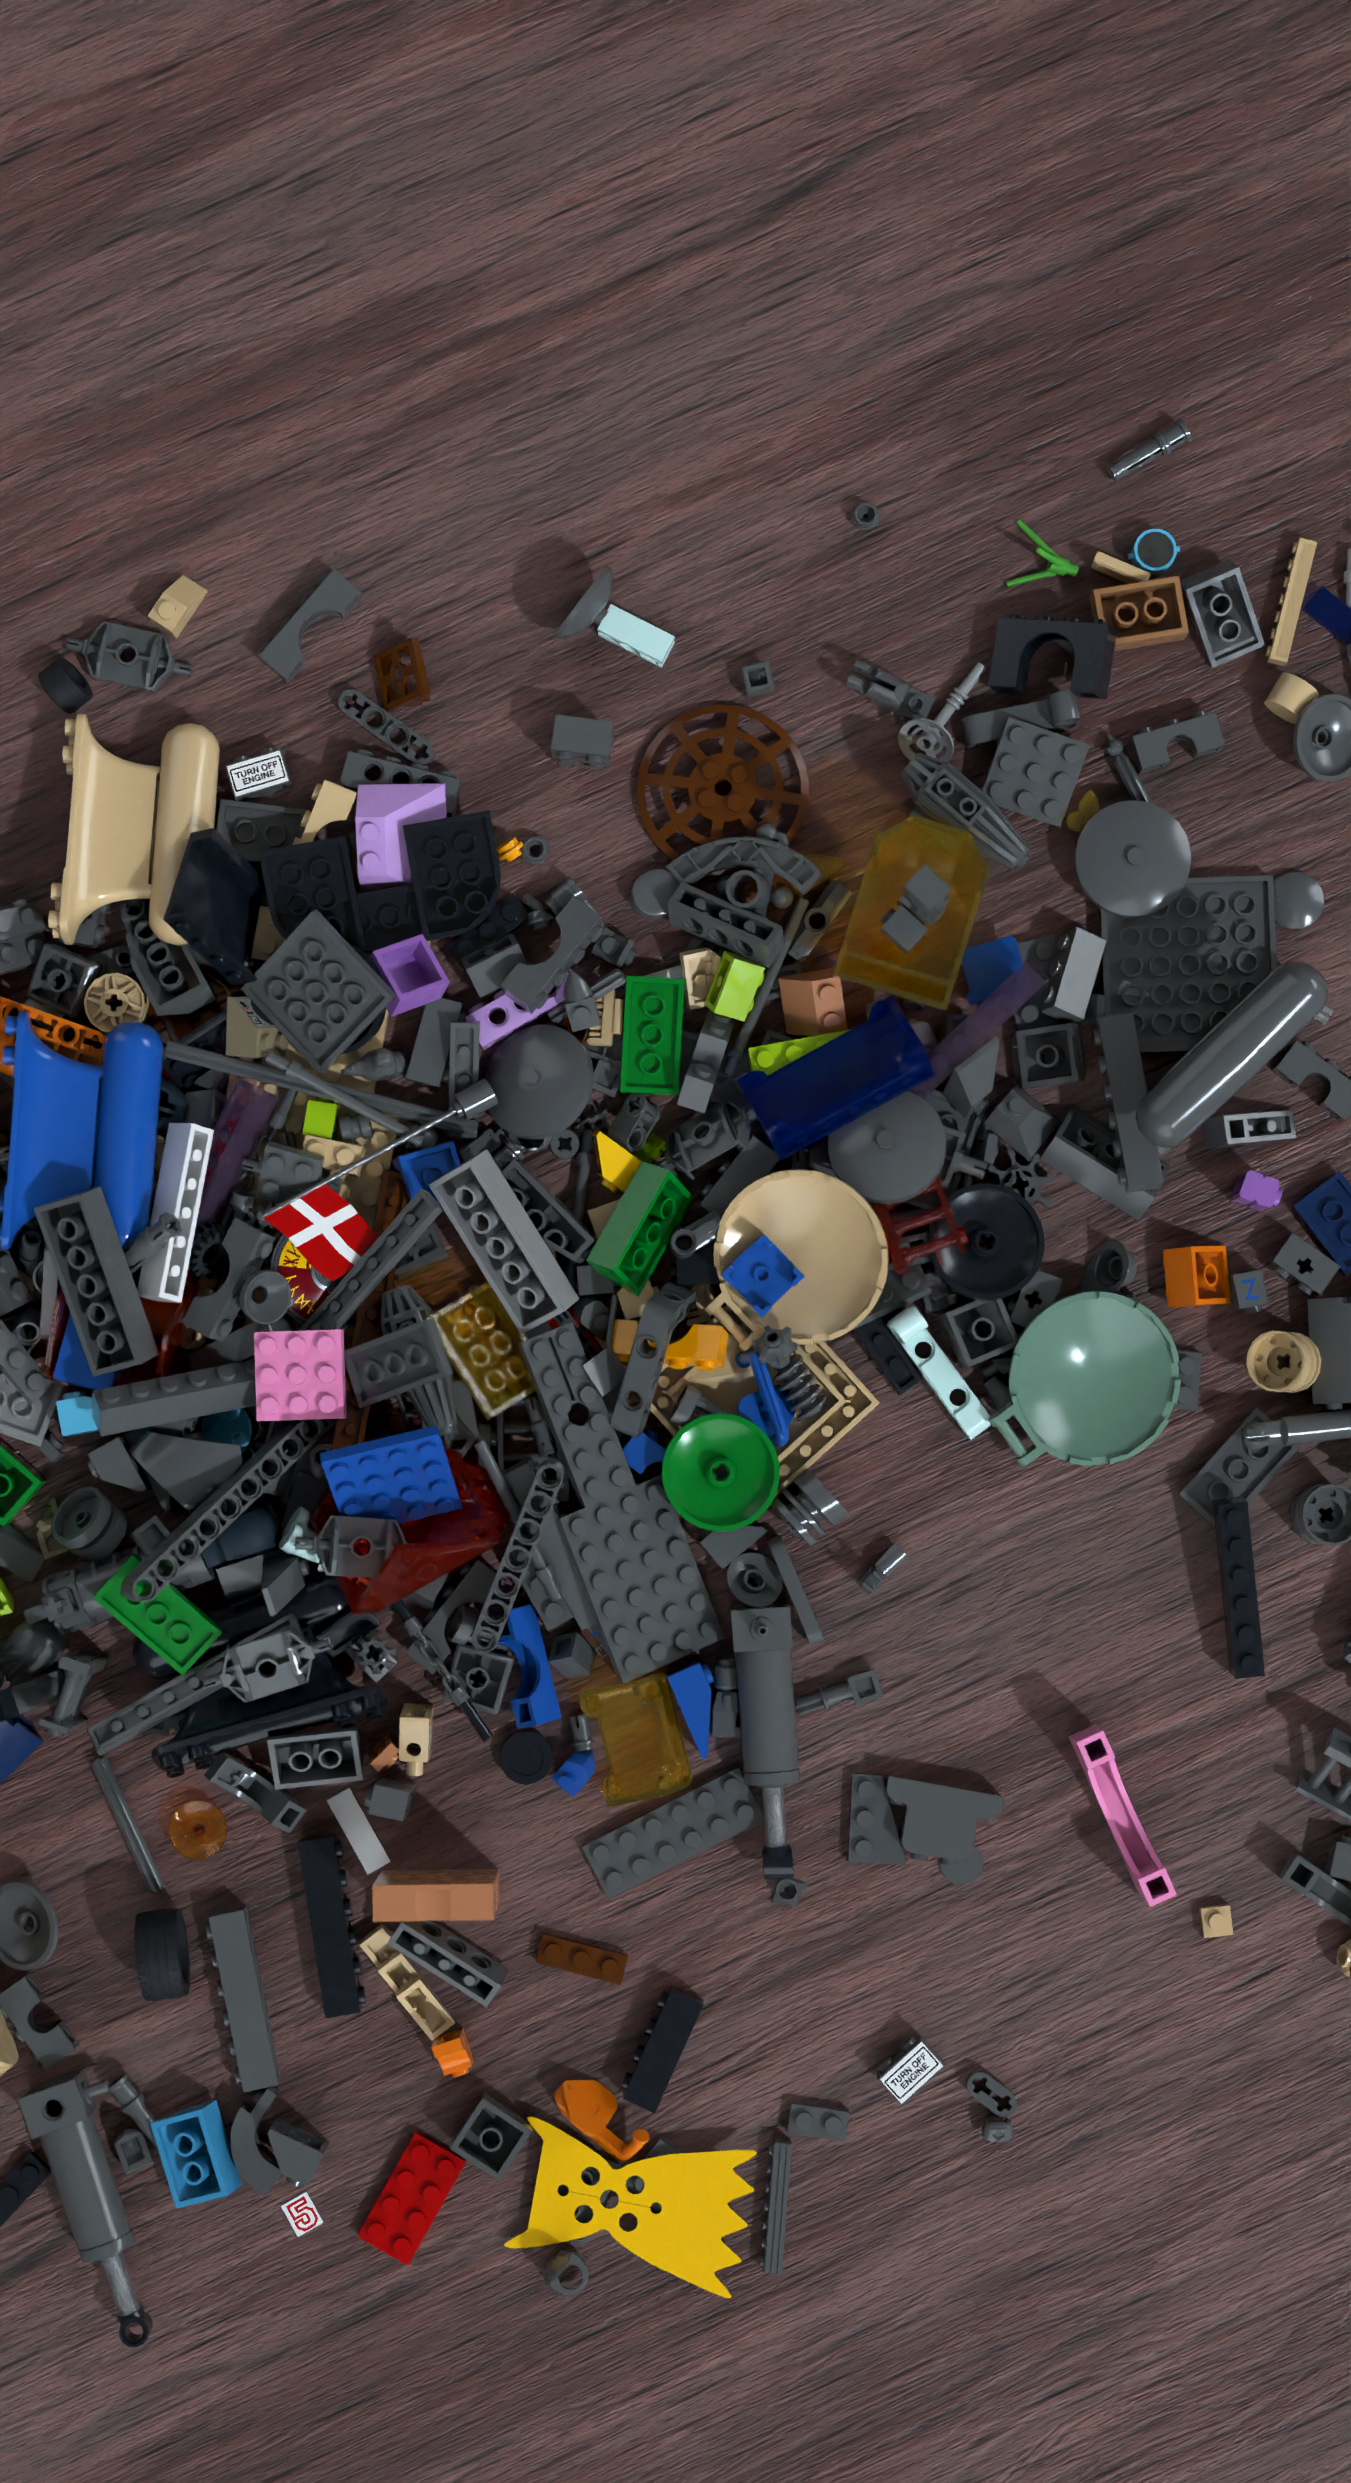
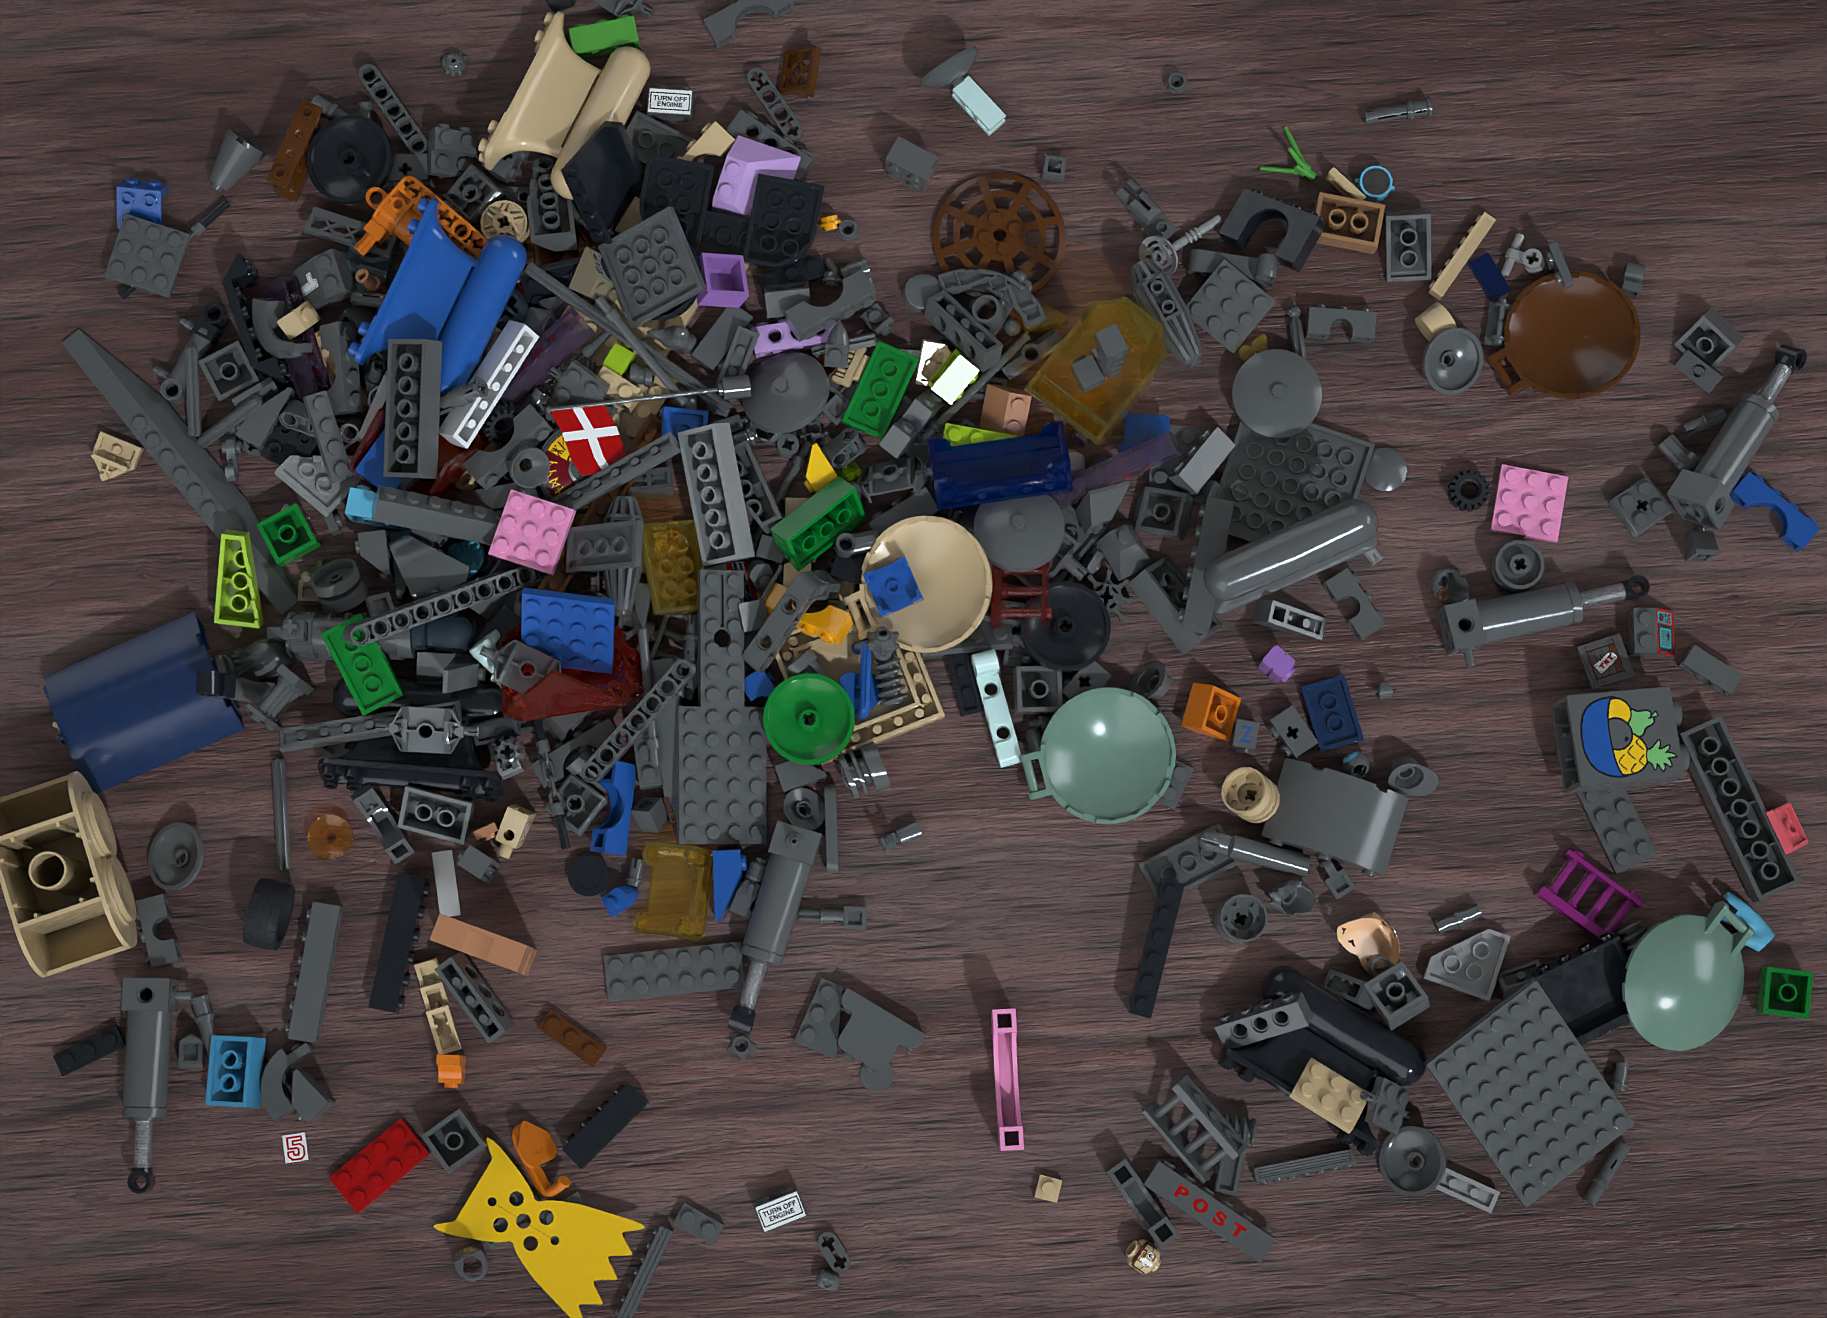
camera: 20 degrees right, 5 degrees down
(145, 722) = (604, 36): none -> bright green brick

